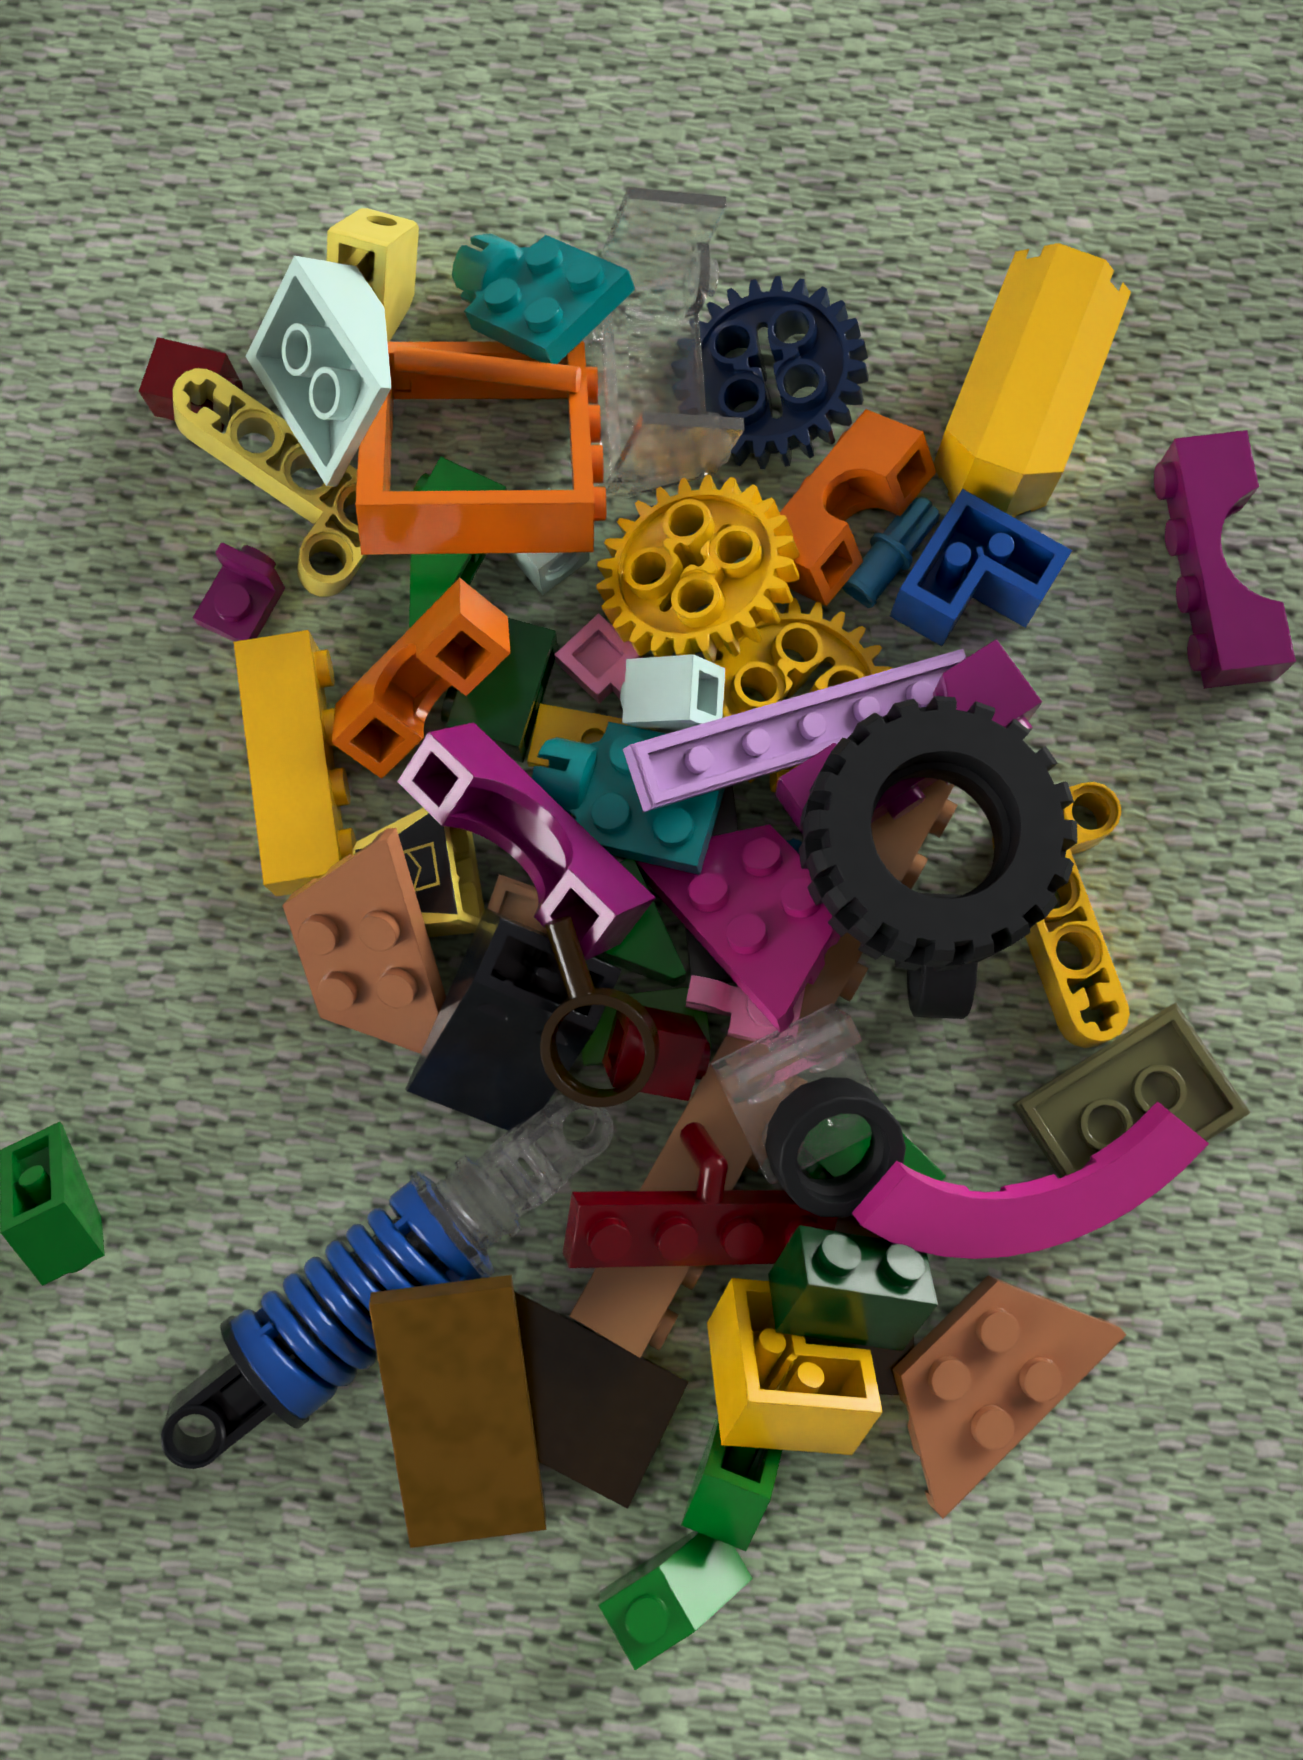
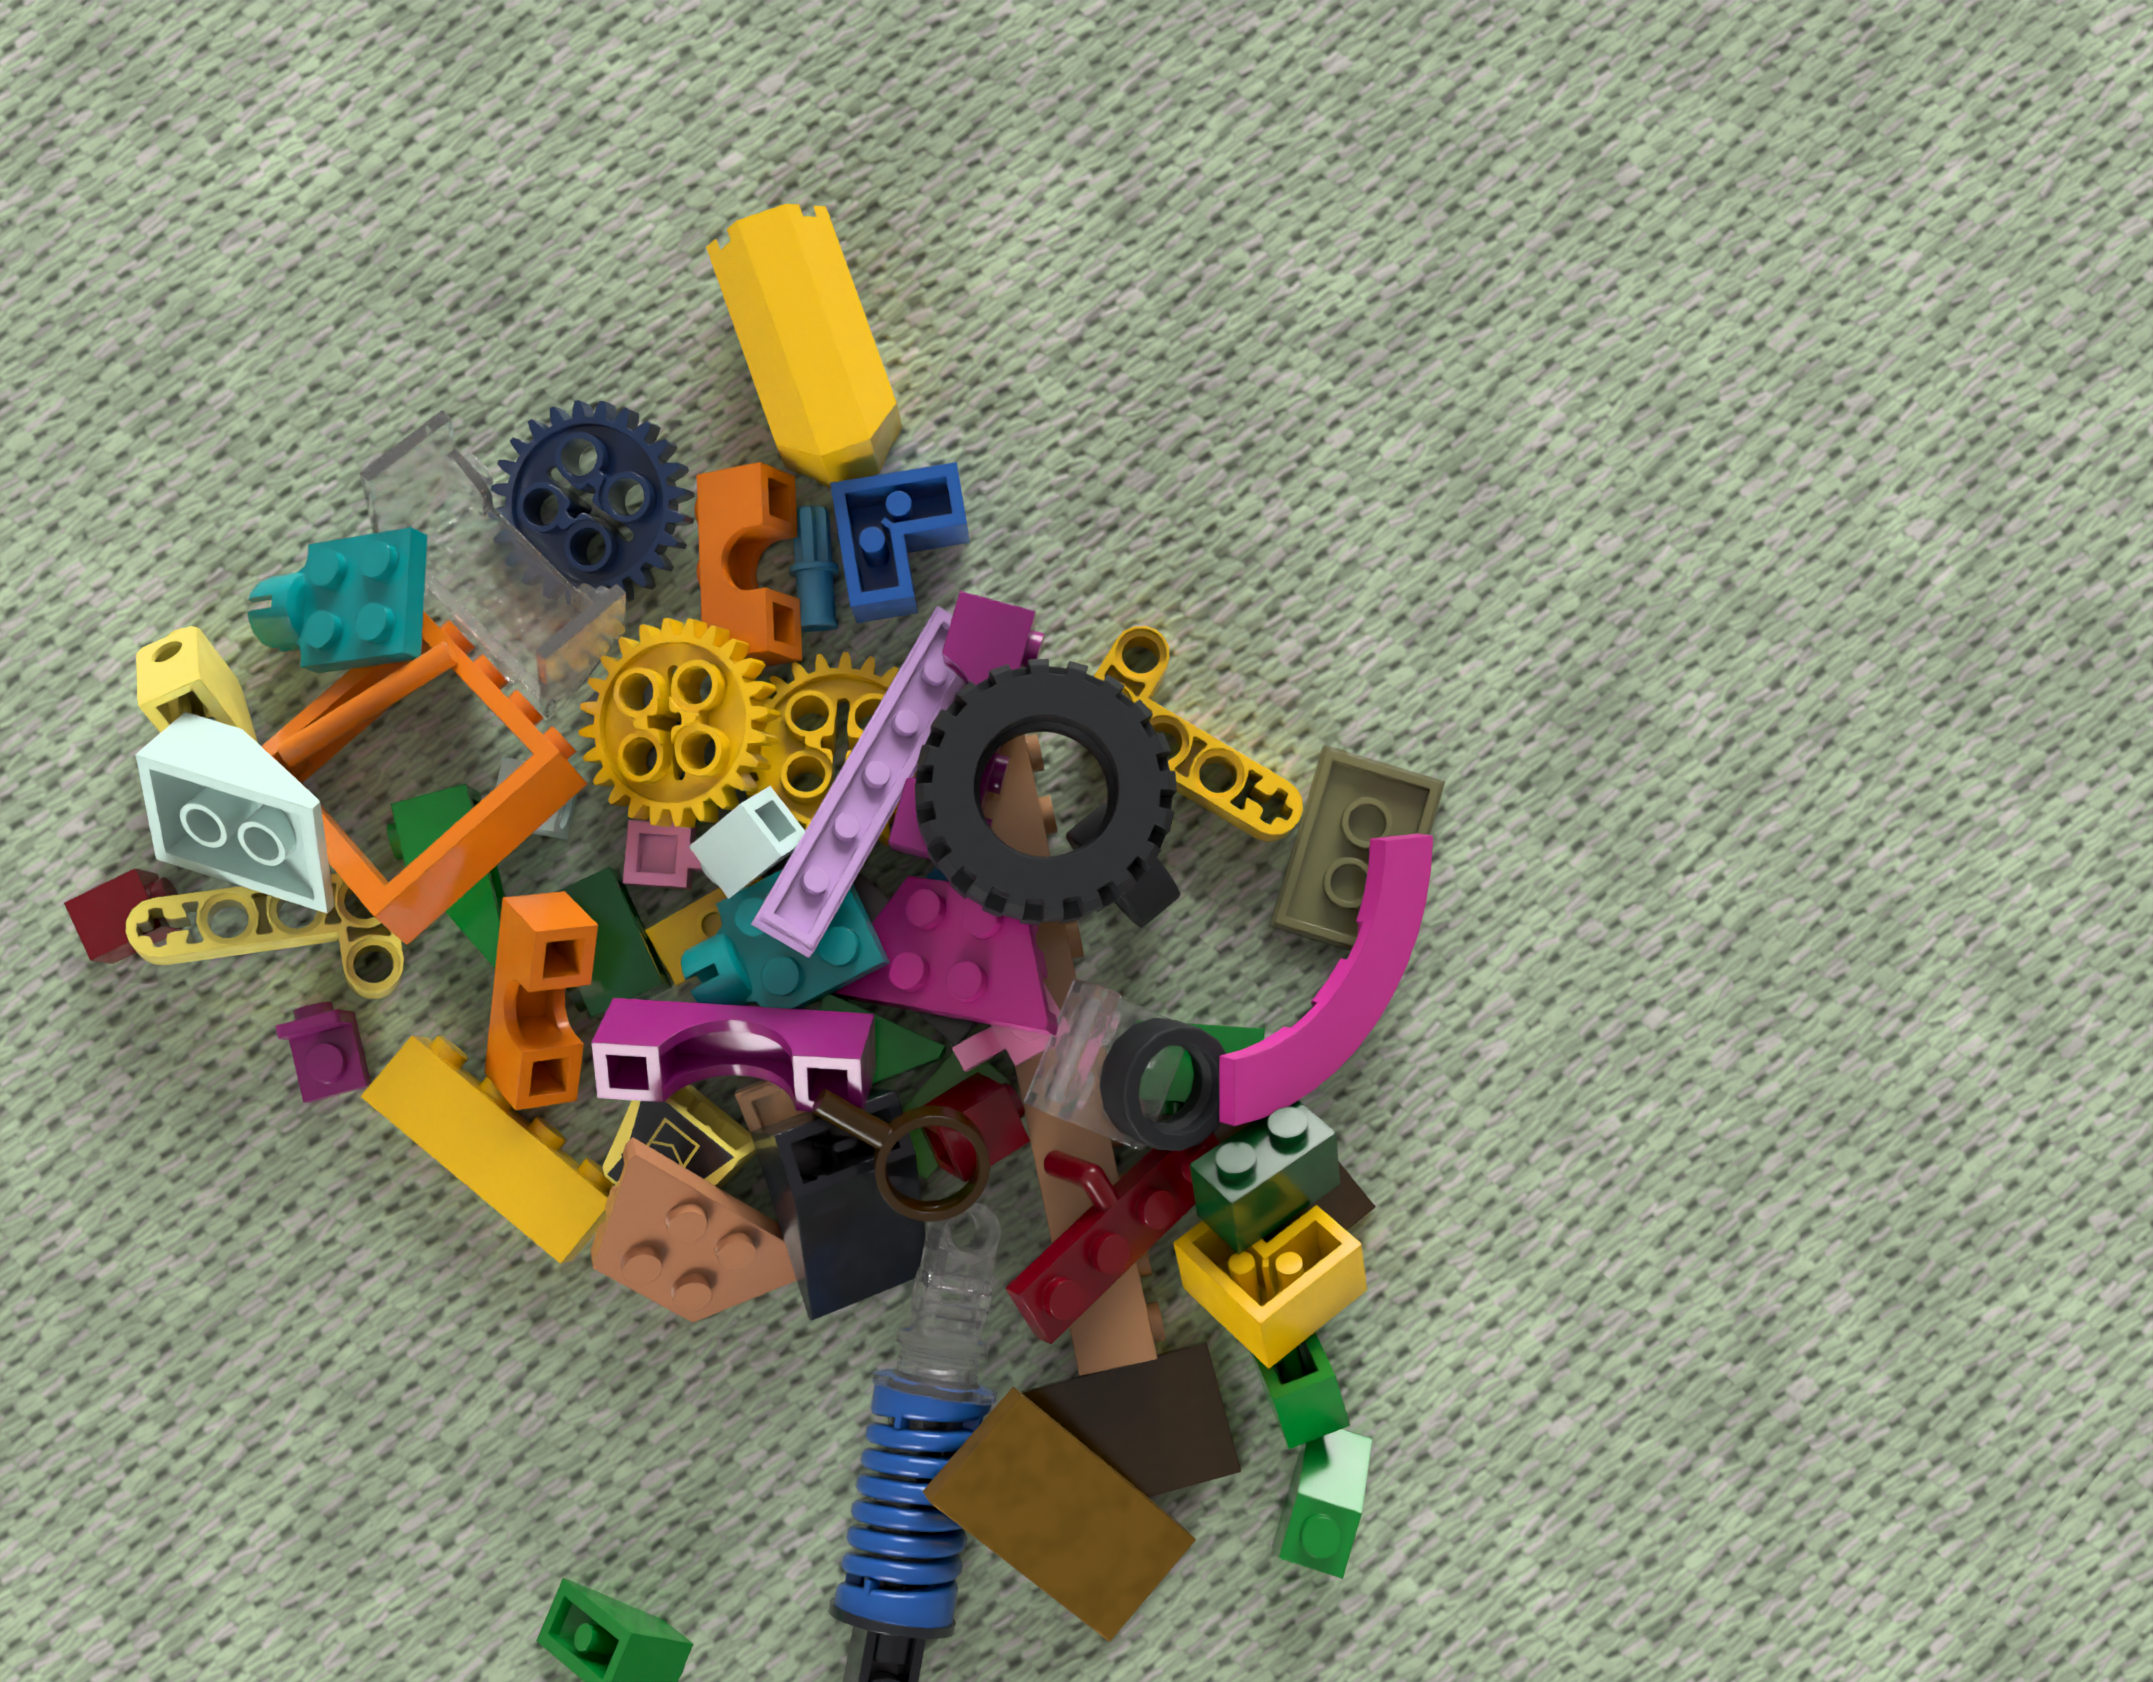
camera: 45 degrees left, 5 degrees up
(991, 1380) = (1420, 1144): nougat wing -> none
(1234, 630) = (1133, 411): magenta arch -> none

